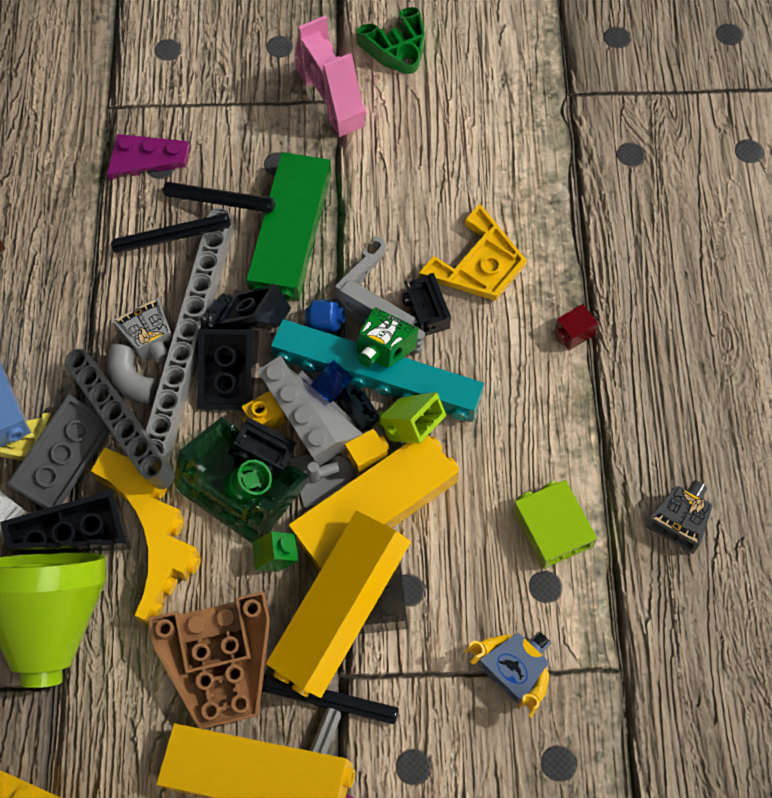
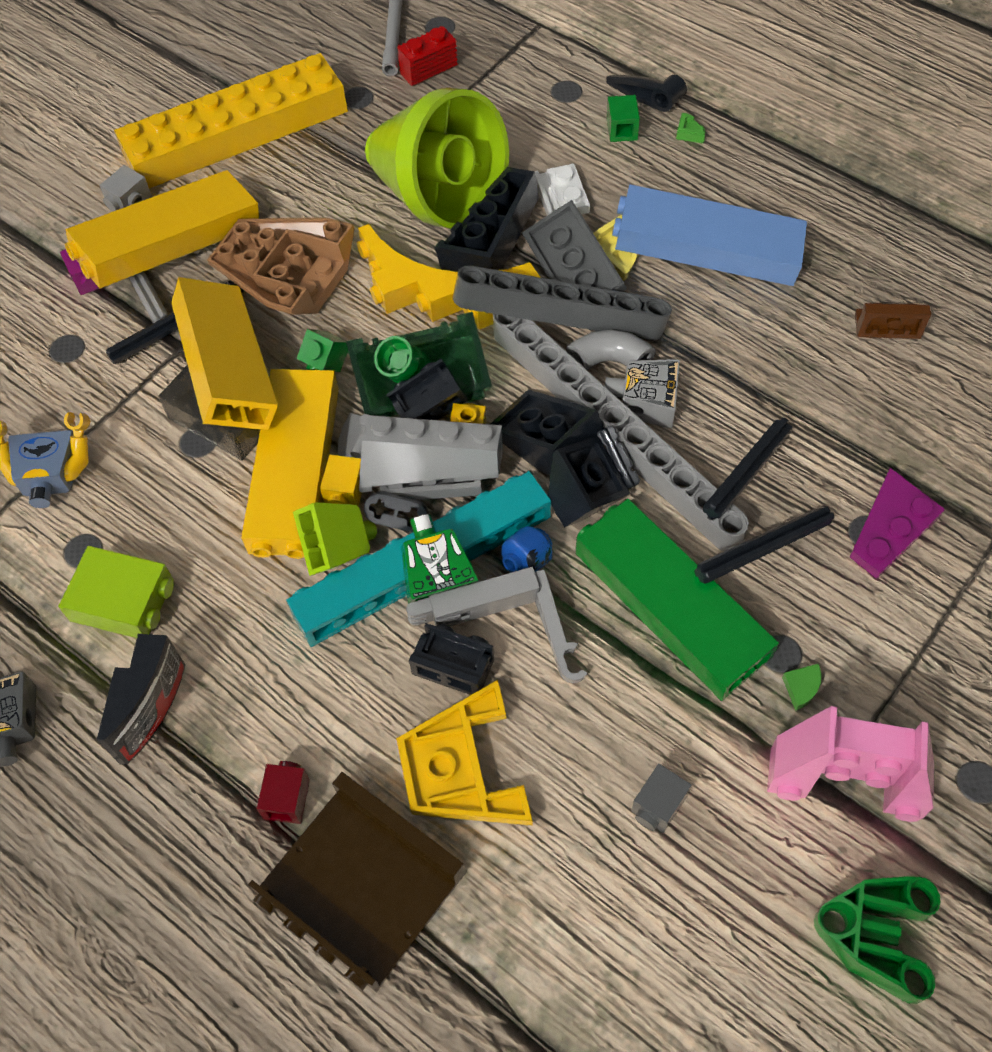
camera: 130 degrees right, 5 degrees down
(290, 140) = (802, 684): none -> bright green tile
(331, 381) = (445, 493): clear blue brick -> none
(415, 158) = (660, 799): none -> dark grey brick
(583, 263) = (360, 884): none -> dark brown panel
(600, 435) = (140, 697): none -> slope

